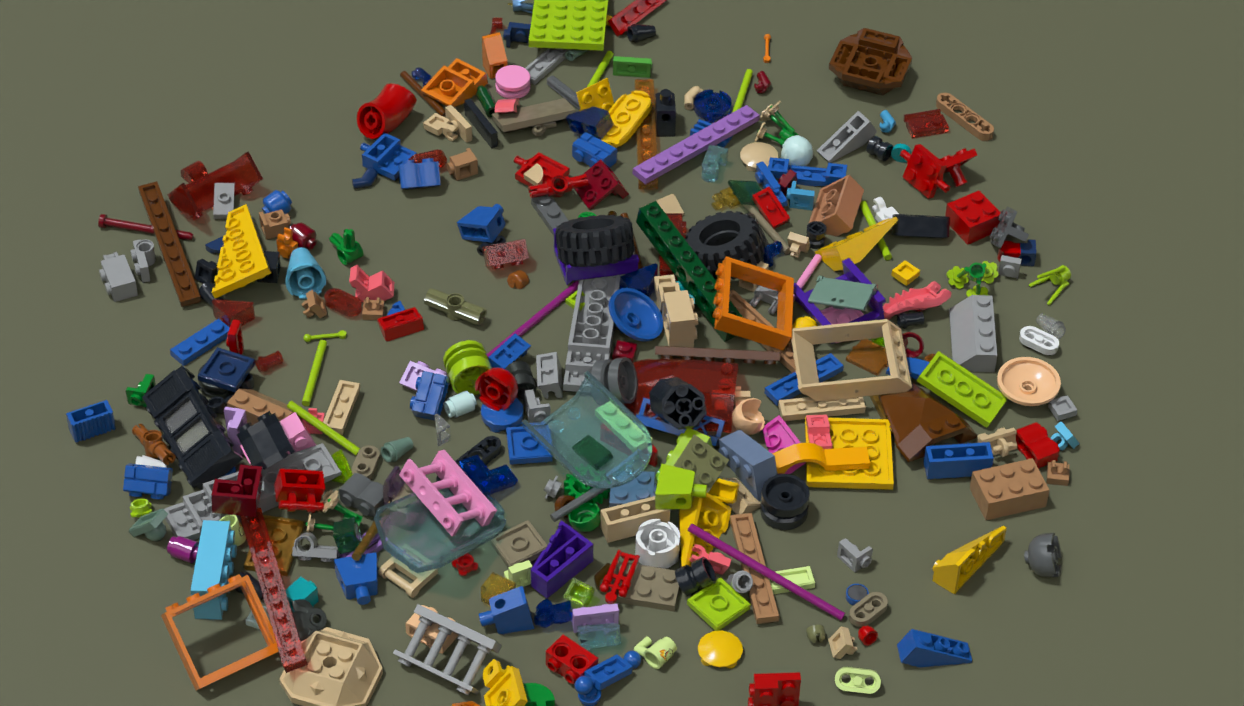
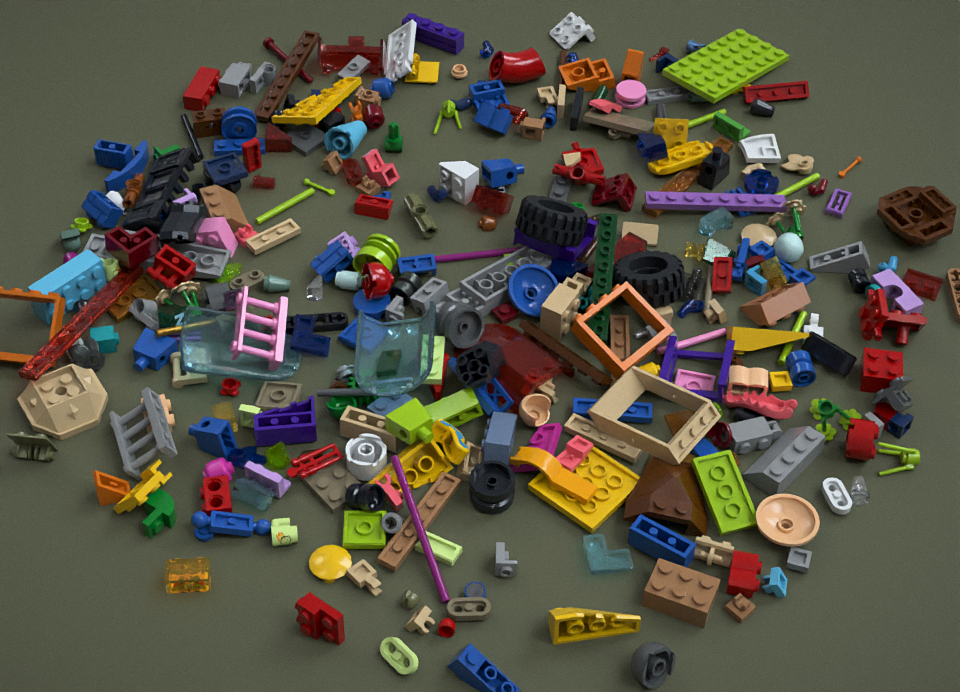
camera: 40 degrees right, 0 degrees up
(96, 305) = (201, 89): none -> red brick
(125, 440) = (117, 180): none -> blue slope
(137, 358) = (191, 135): none -> black bar
(147, 334) = (207, 122): none -> reddish brown brick
(185, 318) = (238, 123): none -> blue wheel
(262, 121) = (436, 34): none -> dark purple brick
(263, 294) = (306, 139): none -> dark grey plate
(270, 163) = (400, 51): none -> white hinge
(290, 166) = (422, 71): none -> yellow hinge
(323, 428) = (241, 239): lime bar -> none
(328, 146) = (459, 71): none -> light nougat plate
(331, 109) = (488, 49): none -> clear blue arm
(364, 191) = (448, 110): none -> lime plant
(391, 48) = (571, 30): none -> white bracket
(446, 279) = (437, 195): none -> clear blue arm
(458, 253) = (459, 180): none -> white slope
(463, 143) = (550, 115): none -> blue cone
(544, 637) = (219, 468): none -> dark pink head
(591, 149) = (635, 166): blue brick -> none
(679, 72) = (760, 149): none -> white plate
(703, 460) = (450, 417): olive hinge -> none
(725, 68) = (797, 162): none -> tan plate
(759, 640) = (364, 574): none -> tan plate
(793, 96) = (835, 211): none -> medium lavender tile
(810, 180) = (773, 272): none -> clear yellow brick
(816, 232) = (737, 313): black wheel -> none
(842, 293) = (698, 362): sand green door -> none
(888, 283) = (747, 379): none -> light nougat brick
(912, 251) = (800, 368): none -> blue wheel
(924, 504) = (604, 561): none -> clear light blue plate
(932, 329) = (752, 434): none -> light grey brick
(936, 144) = (895, 288): none -> lavender arch
(1017, 282) = (860, 439): none -> red brick

